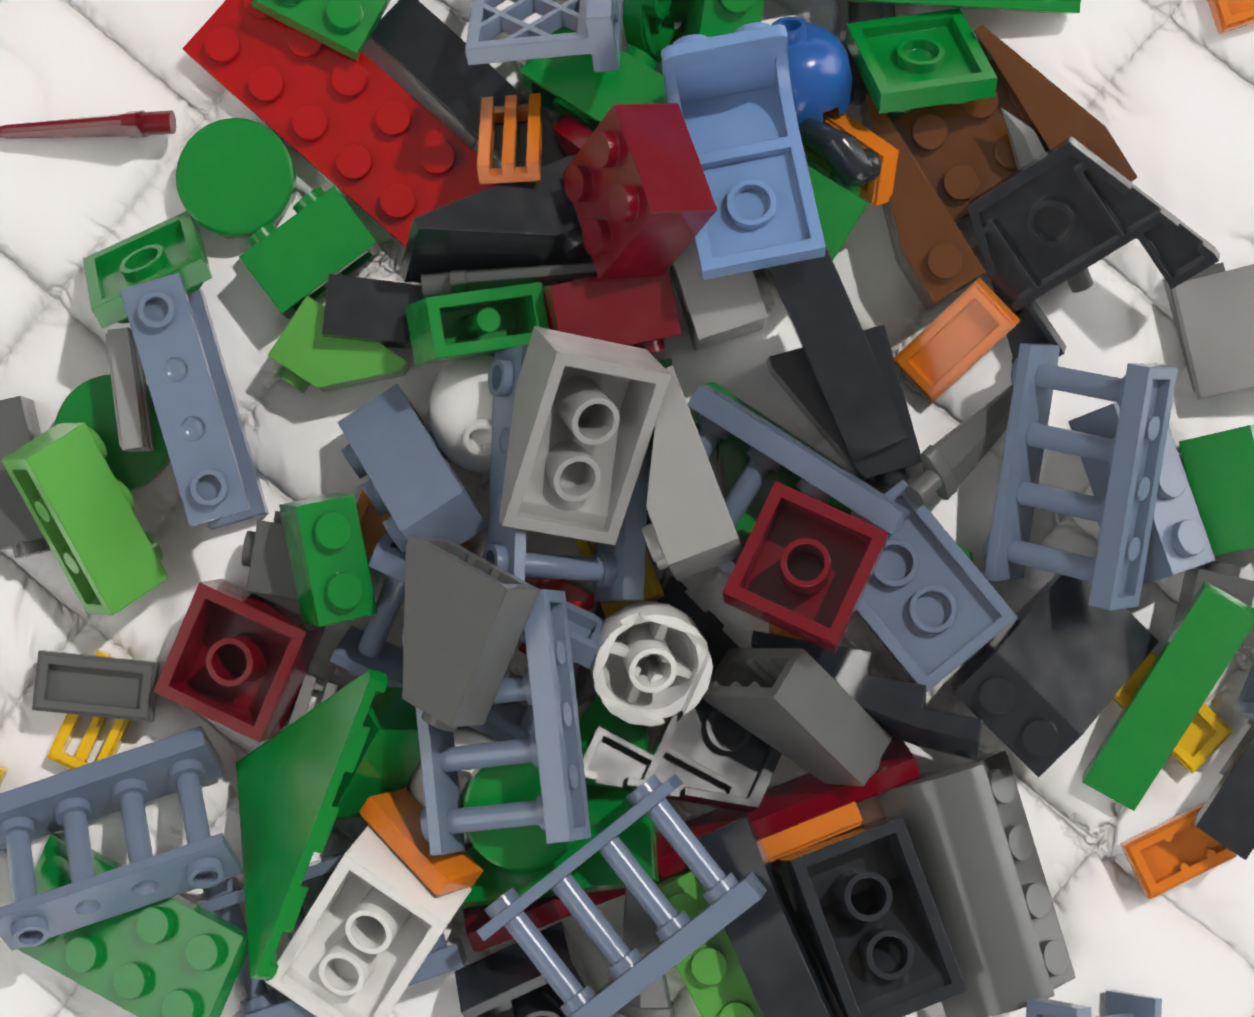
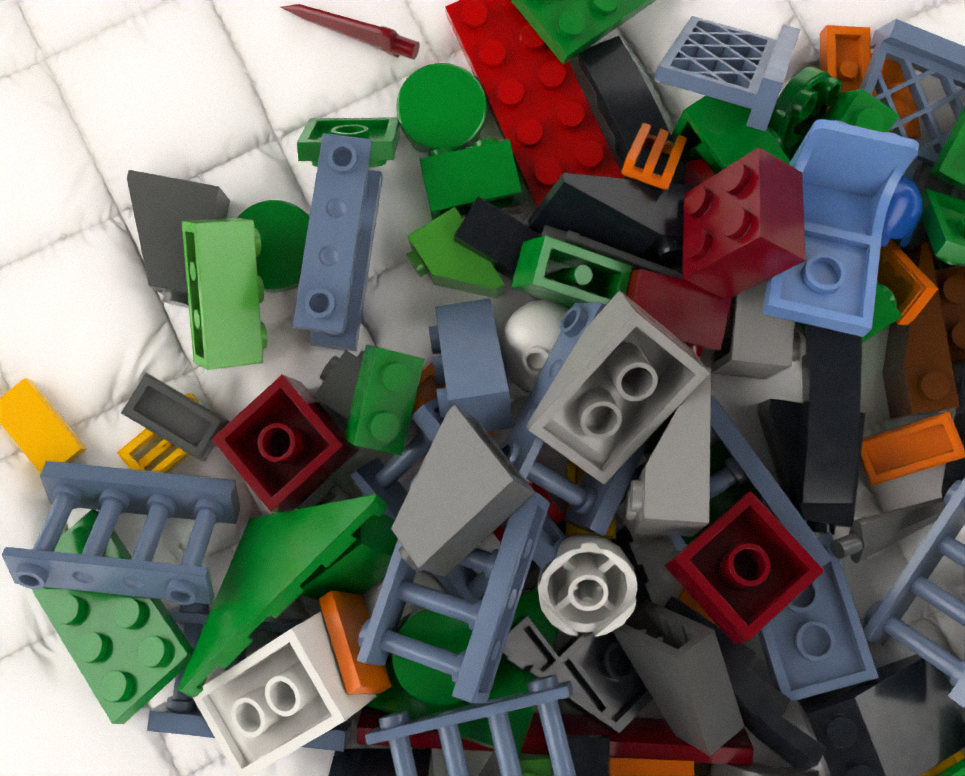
camera: 25 degrees right, 5 degrees down
(129, 392) = (295, 219): light grey tile -> none
(841, 152) = (899, 273): black arm -> none

